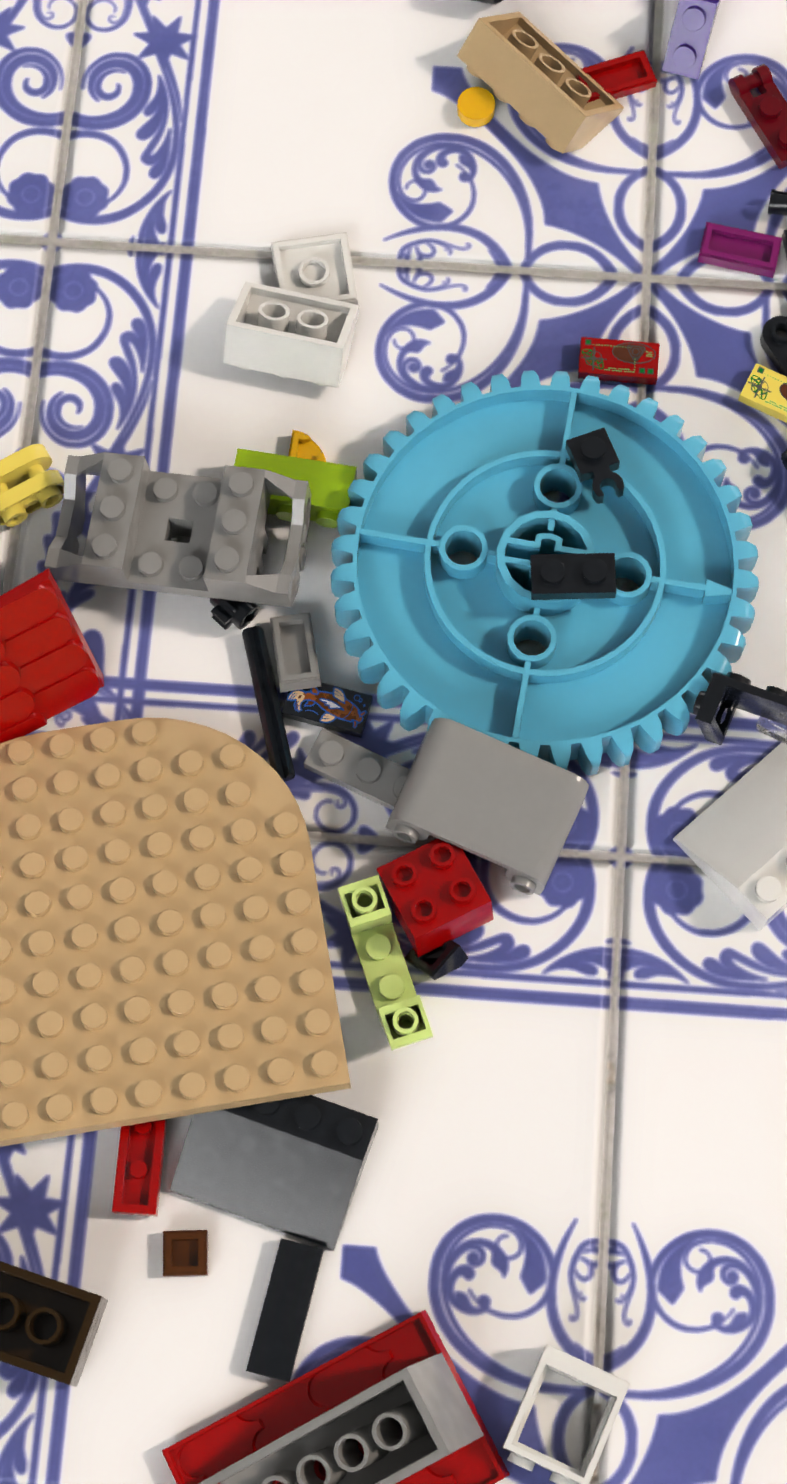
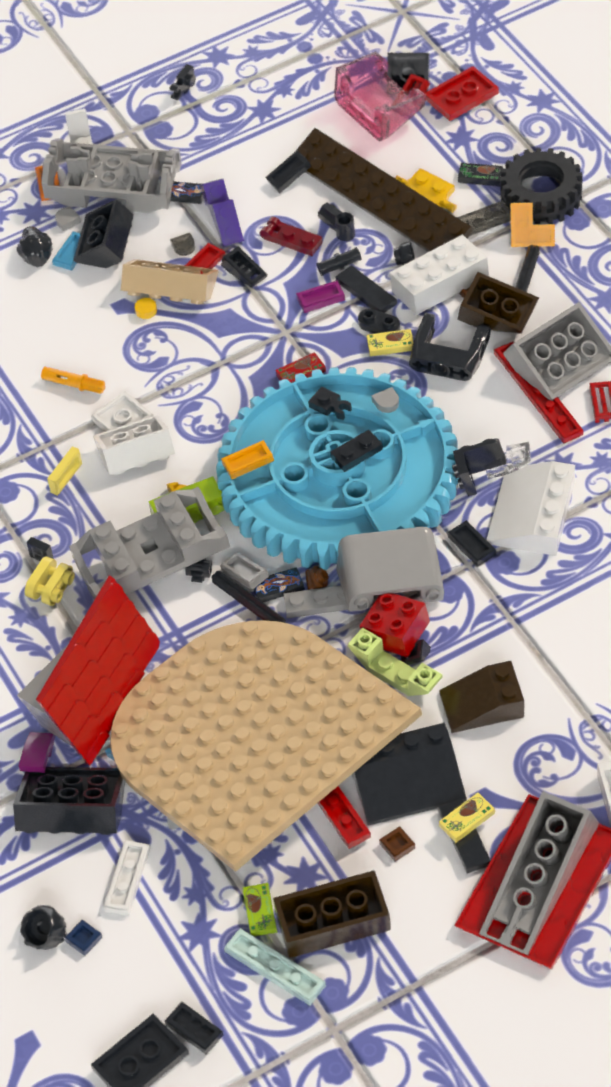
camera: 30 degrees left, 20 degrees down
(43, 425) = (38, 549): none -> black tile
(168, 313) = (64, 471): none -> light yellow tile
(297, 176) = (81, 382): none -> light orange axle
(303, 1290) = (467, 817): none -> light yellow tile
(386, 735) = (316, 578): none -> reddish brown plate
(410, 481) = (247, 459): none -> light orange tile
(471, 1104) = (483, 698): none -> dark brown slope
(607, 30) = (183, 244): none -> clear smoke tile
(651, 826) = (471, 543): none -> black tile
(663, 98) = (239, 255): none -> black slope
(682, 515) = (386, 400): none -> light grey tile

